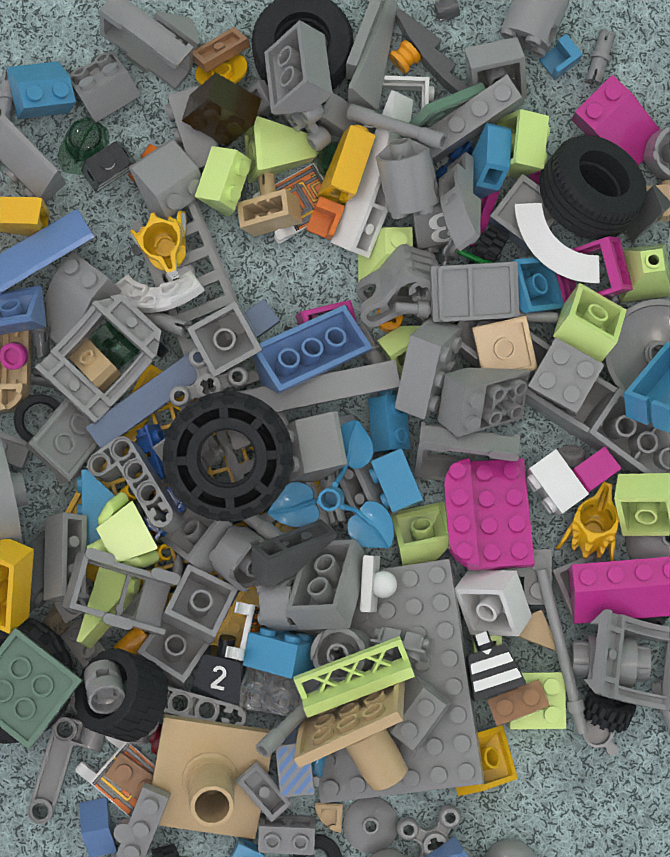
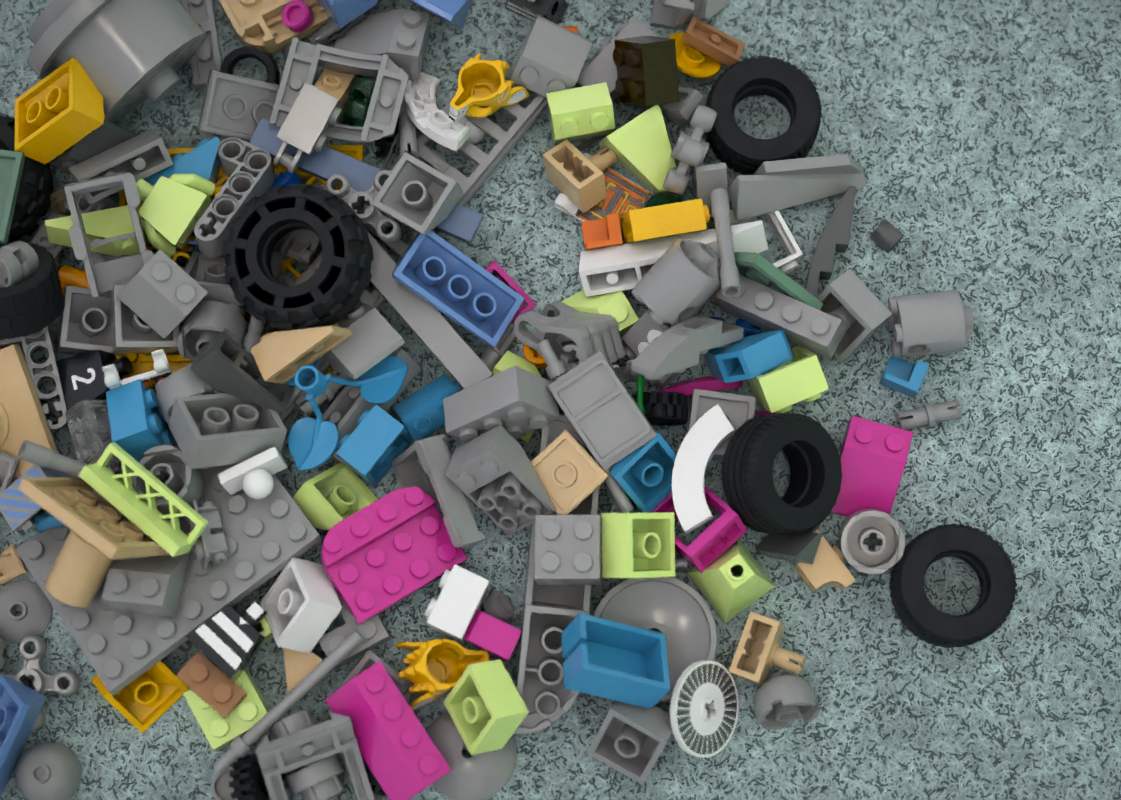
camera: 60 degrees right, 5 degrees down
(117, 393) = (306, 125): none -> light grey brick
(194, 577) = (162, 294): none -> light grey slope
(295, 506) = (285, 352): none -> tan slope
(298, 70) = (724, 117): light grey slope -> none
(405, 56) = (812, 222): light orange wheel -> none

